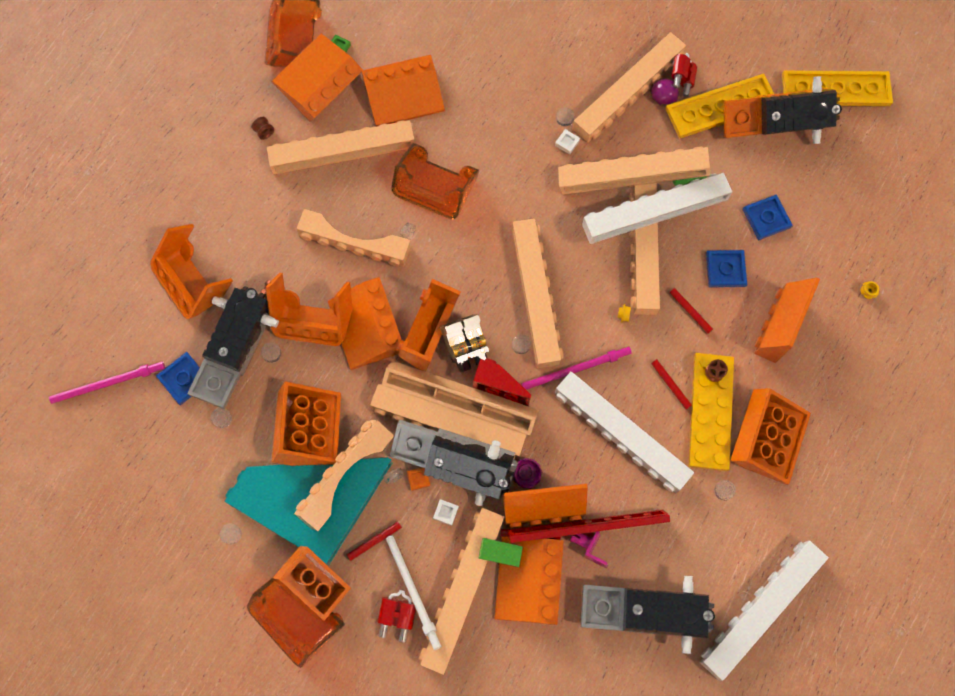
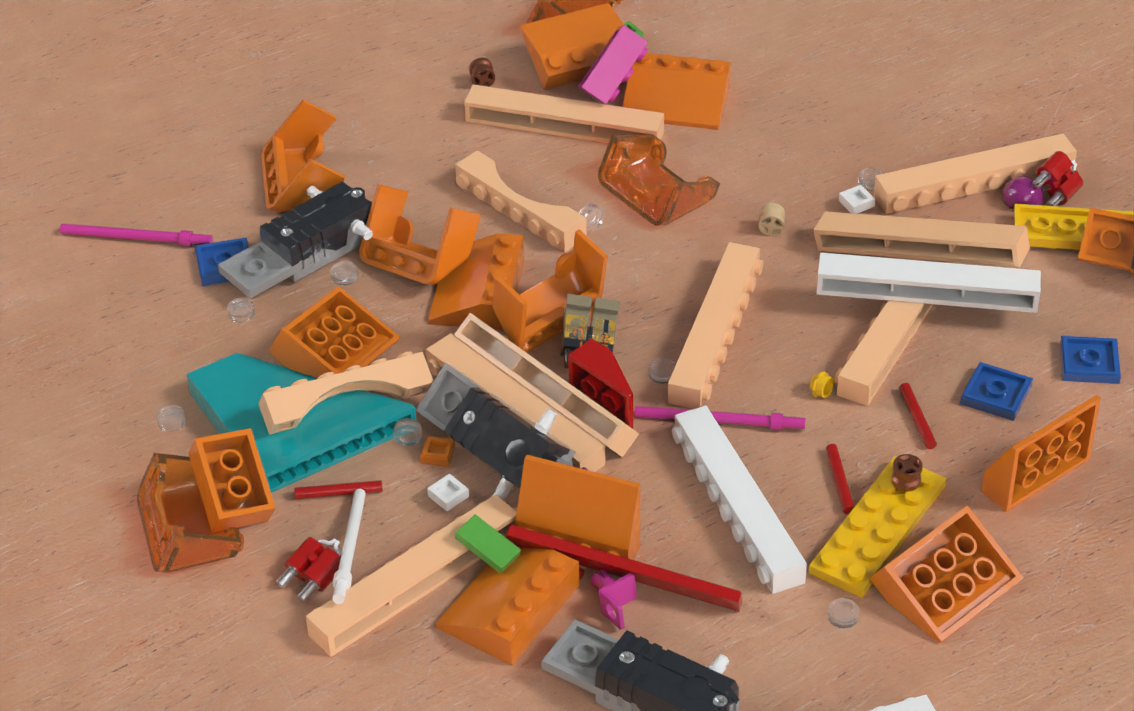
camera: 30 degrees right, 30 degrees down
(358, 96) = (613, 65): none -> dark pink brick
(524, 183) = (771, 226): none -> tan wheel

